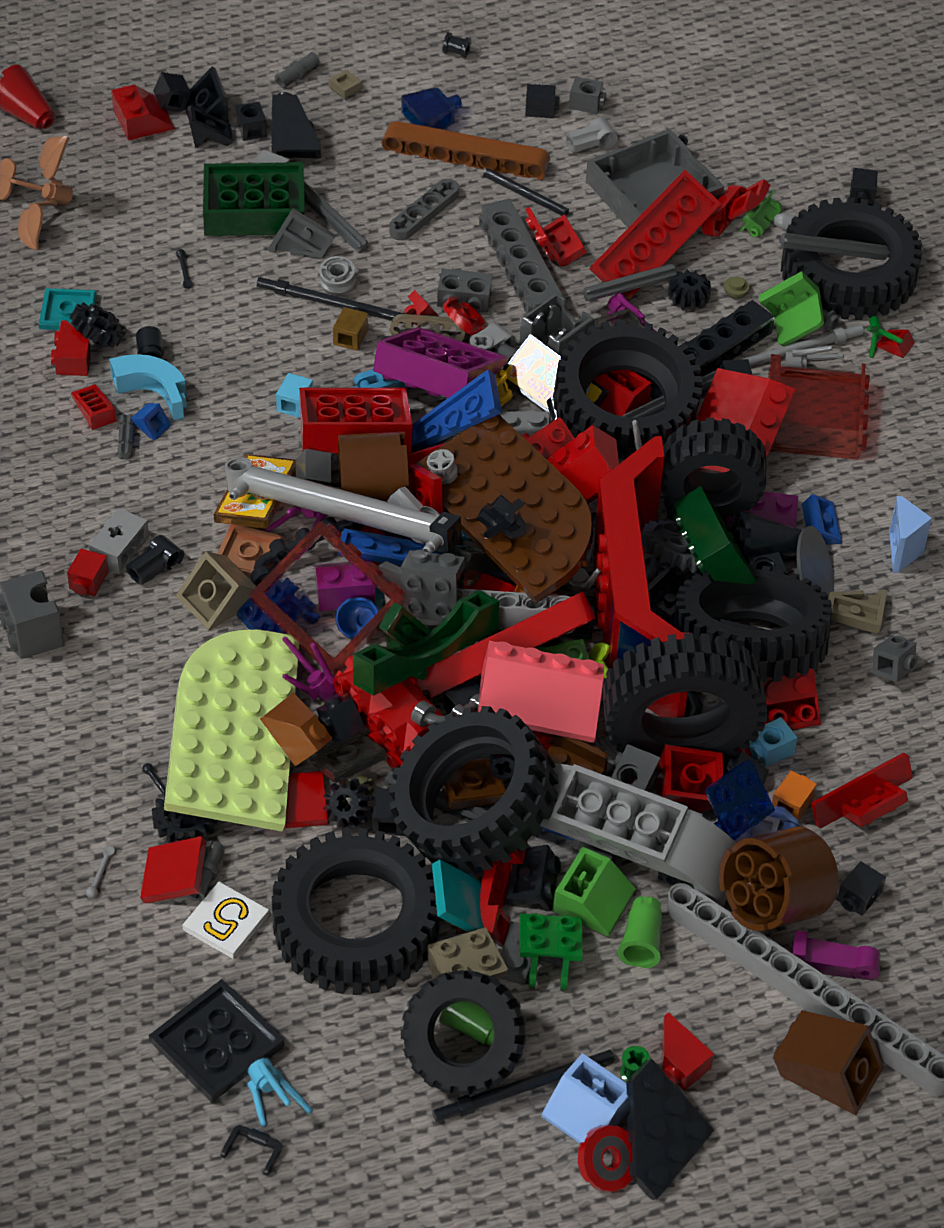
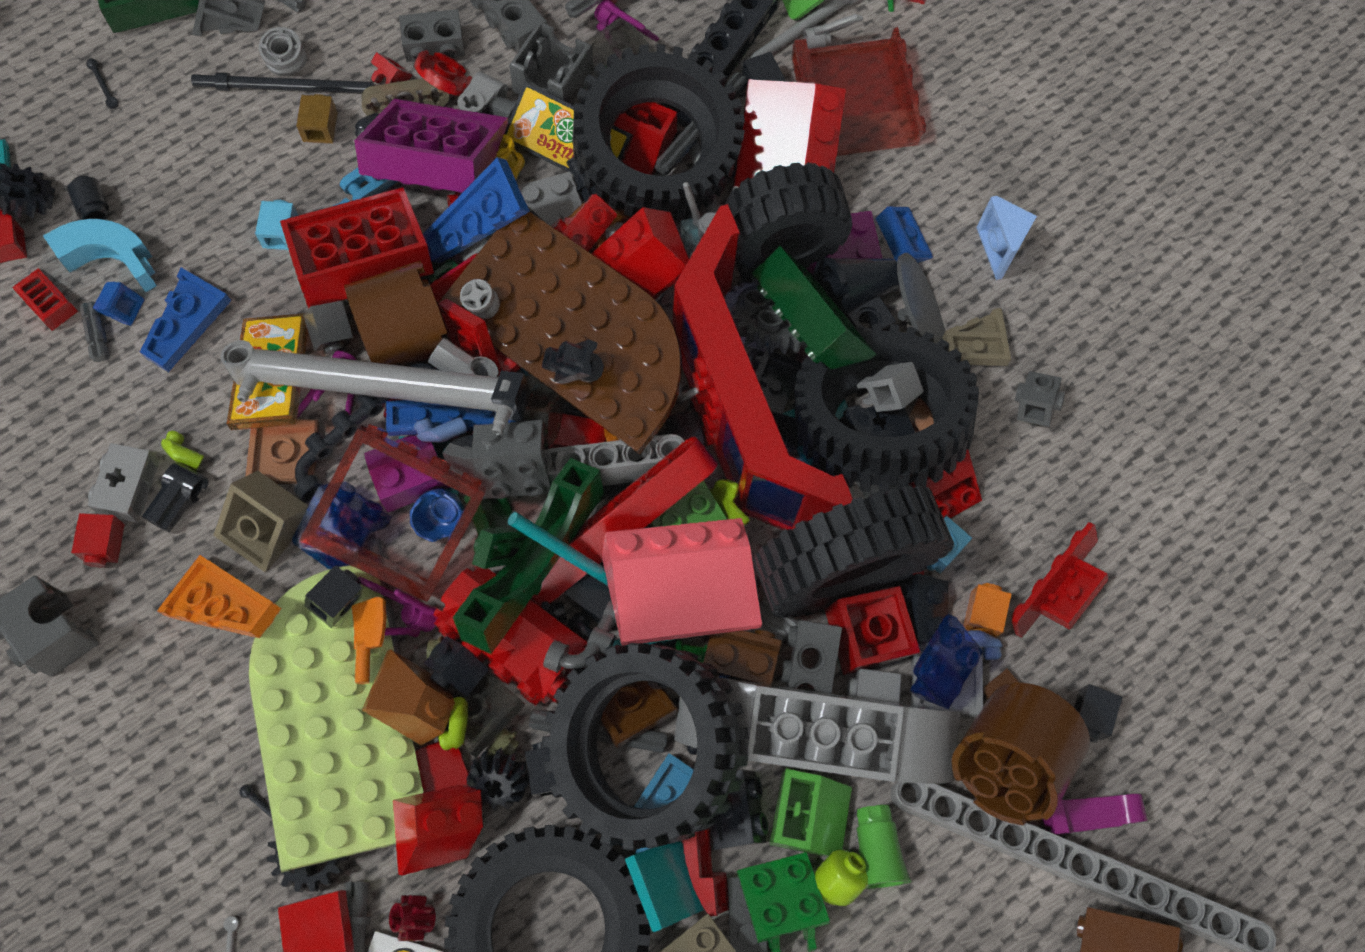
camera: 20 degrees left, 20 degrees up
(164, 526) = (179, 453): none -> lime arm
(170, 628) = (218, 601): none -> orange wing
(200, 443) = (184, 320): none -> blue wing
(251, 877) = (412, 918): none -> dark red gear
(262, 640) = (334, 595): none -> black brick
(281, 672) = (369, 634): none -> orange piece
(290, 814) = (436, 827): none -> red slope
(328, 755) = (457, 726): none -> lime arm
(371, 554) = (441, 433): none -> medium blue arm
(449, 642) = (557, 546): none -> teal bar
(603, 938) = (841, 877): none -> lime head
(764, 610) = (892, 387): none -> light grey brick

